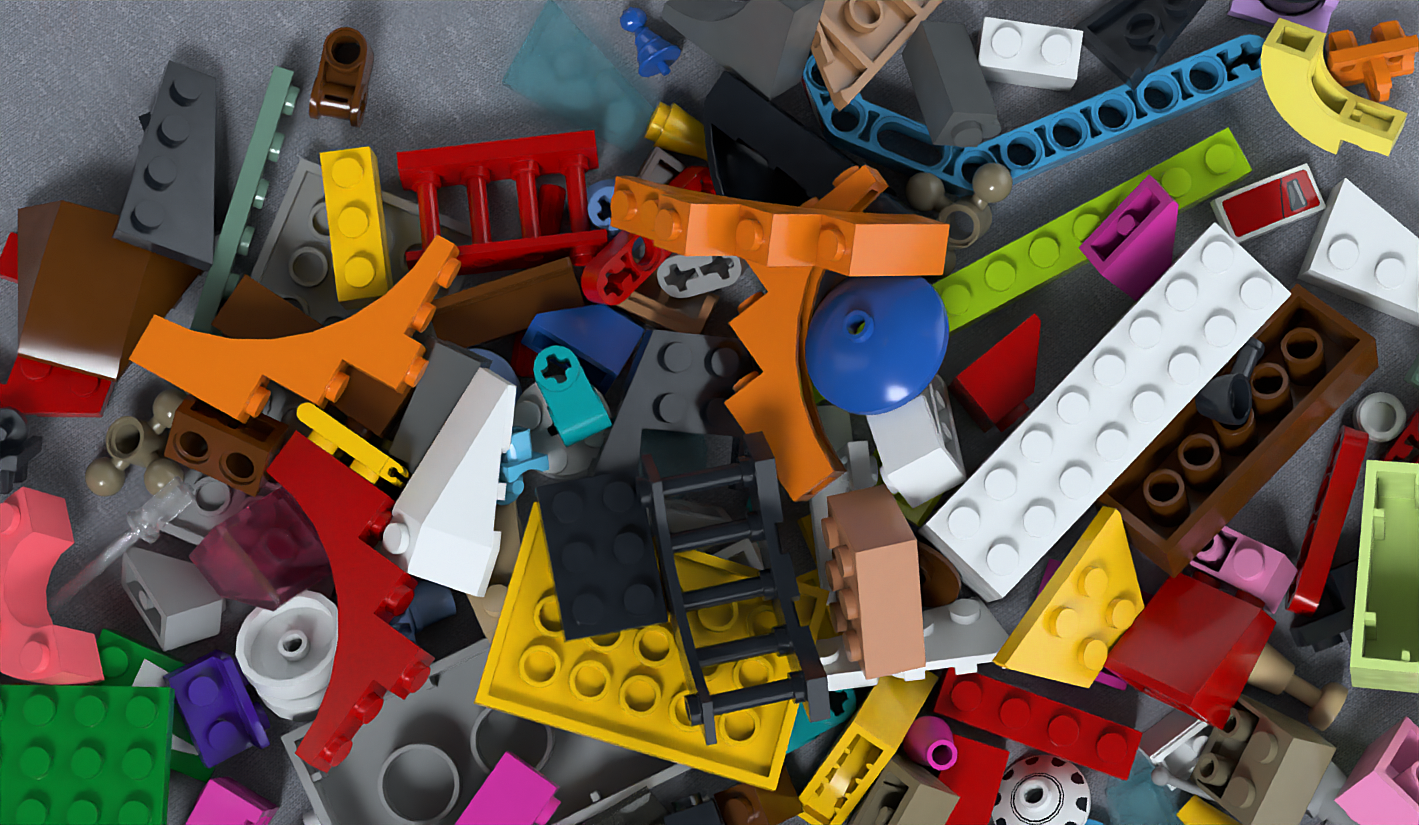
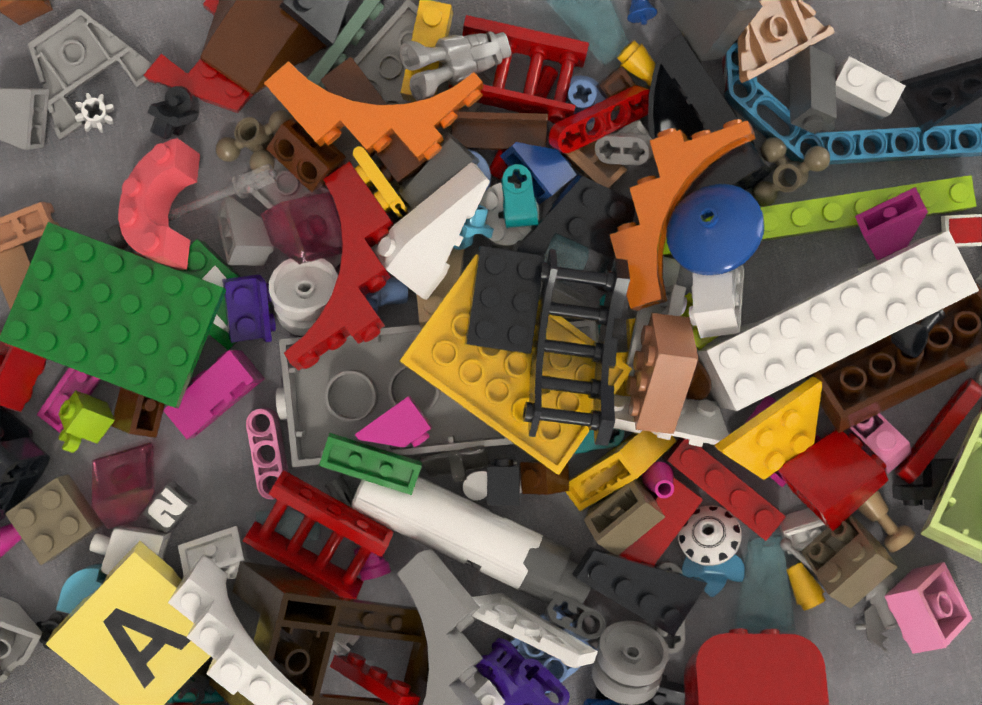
camera: 20 degrees right, 5 degrees up
(407, 218) = (459, 58): none -> light grey piece
(779, 234) = (679, 143): orange arch -> none
(1001, 378) = (779, 279): red slope -> none

